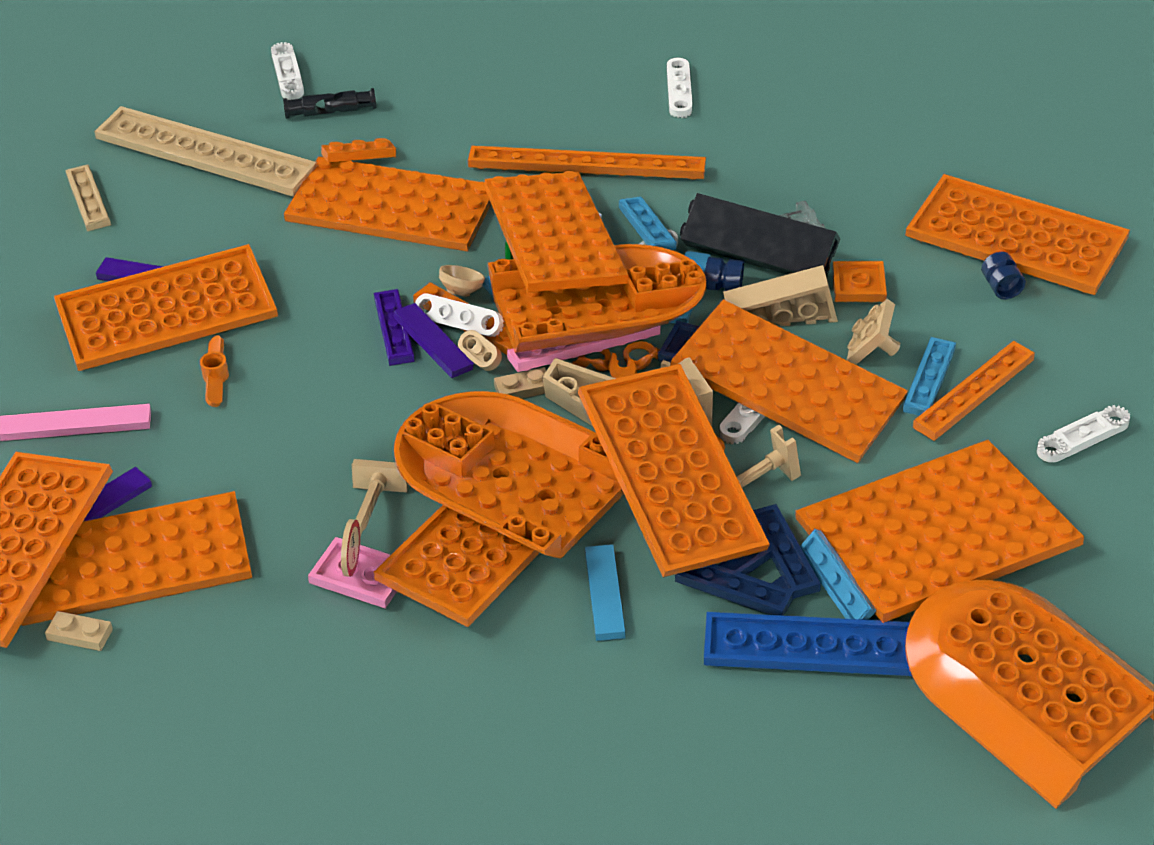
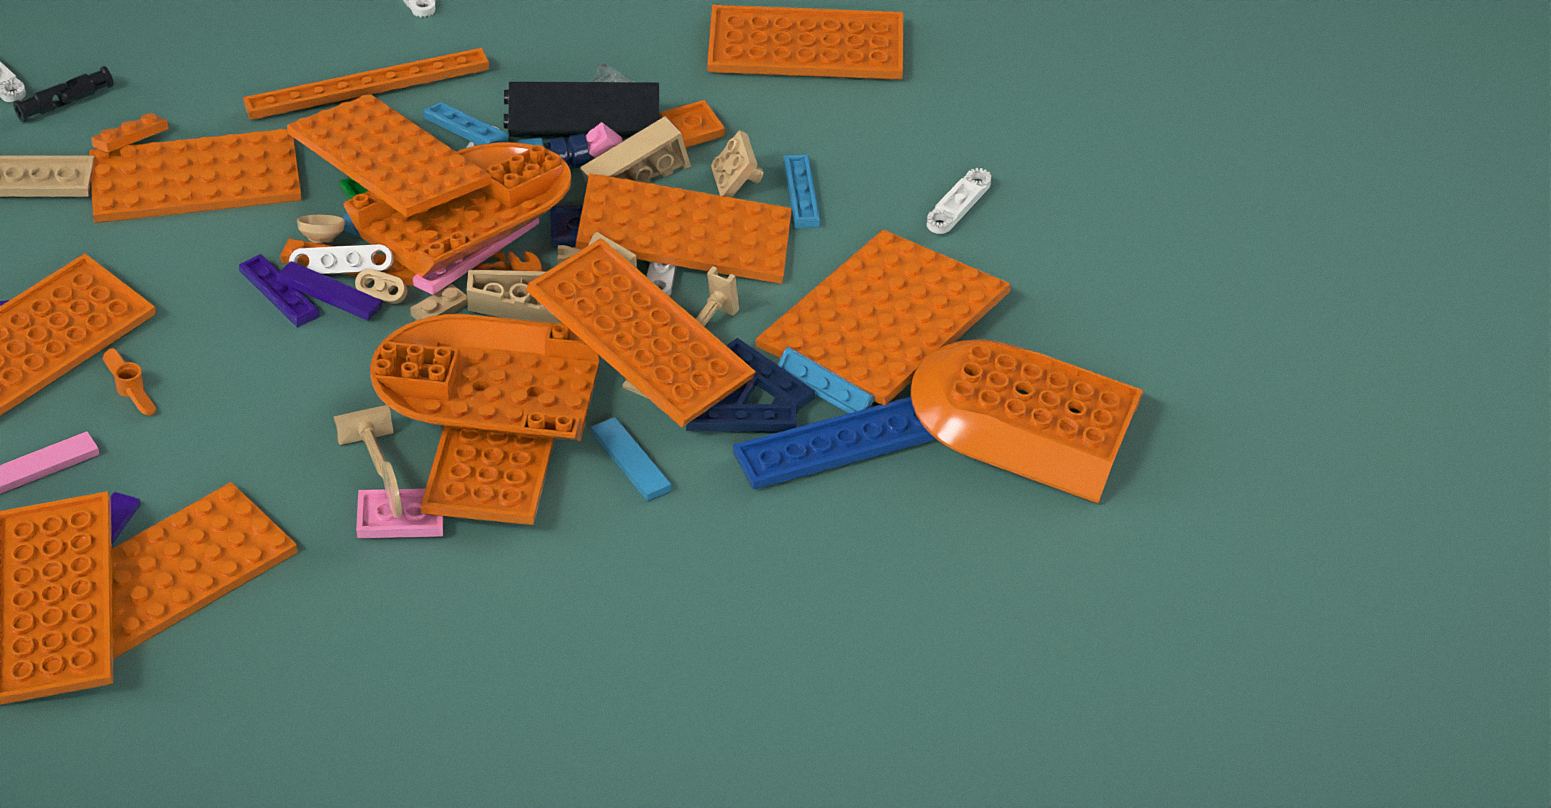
camera: 30 degrees left, 0 degrees up
(79, 631) = (165, 649): tan plate -> none
(646, 360) = (542, 241): orange piece -> none
(758, 270) = (601, 140): none -> bright pink brick
(973, 390) = (847, 191): orange plate -> none
(1003, 275) = (817, 82): dark blue wheel -> none

